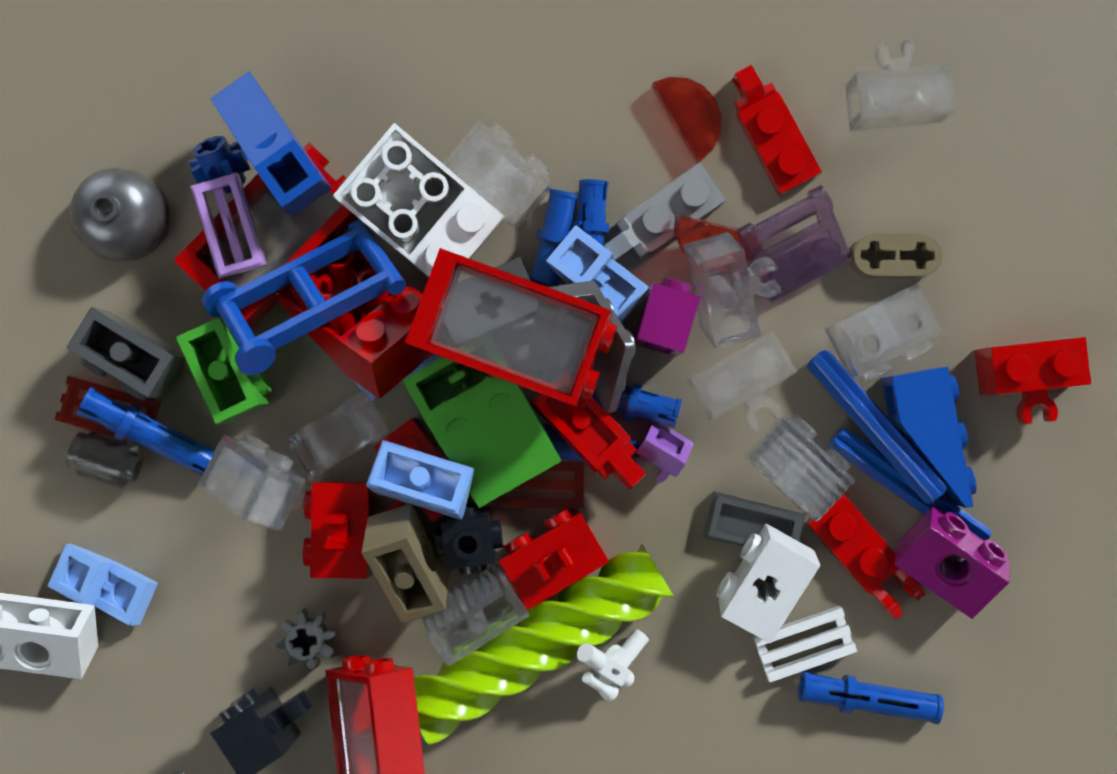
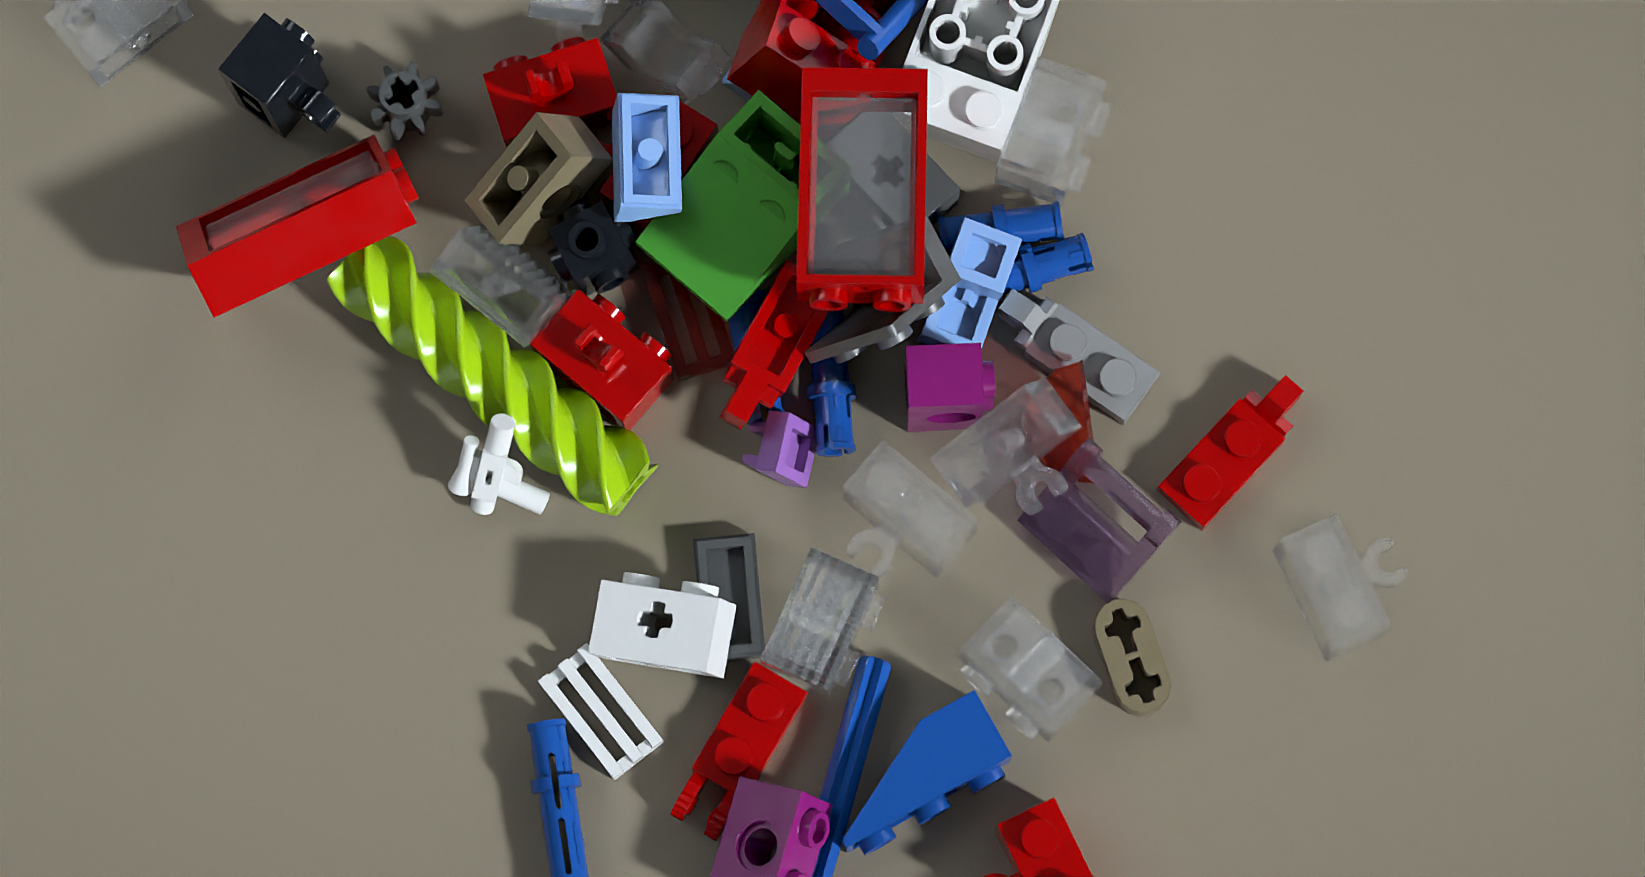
camera: 75 degrees right, 10 degrees down
(692, 113) = (1219, 345): clear red tile -> none
(877, 426) = (906, 702): blue axle -> none

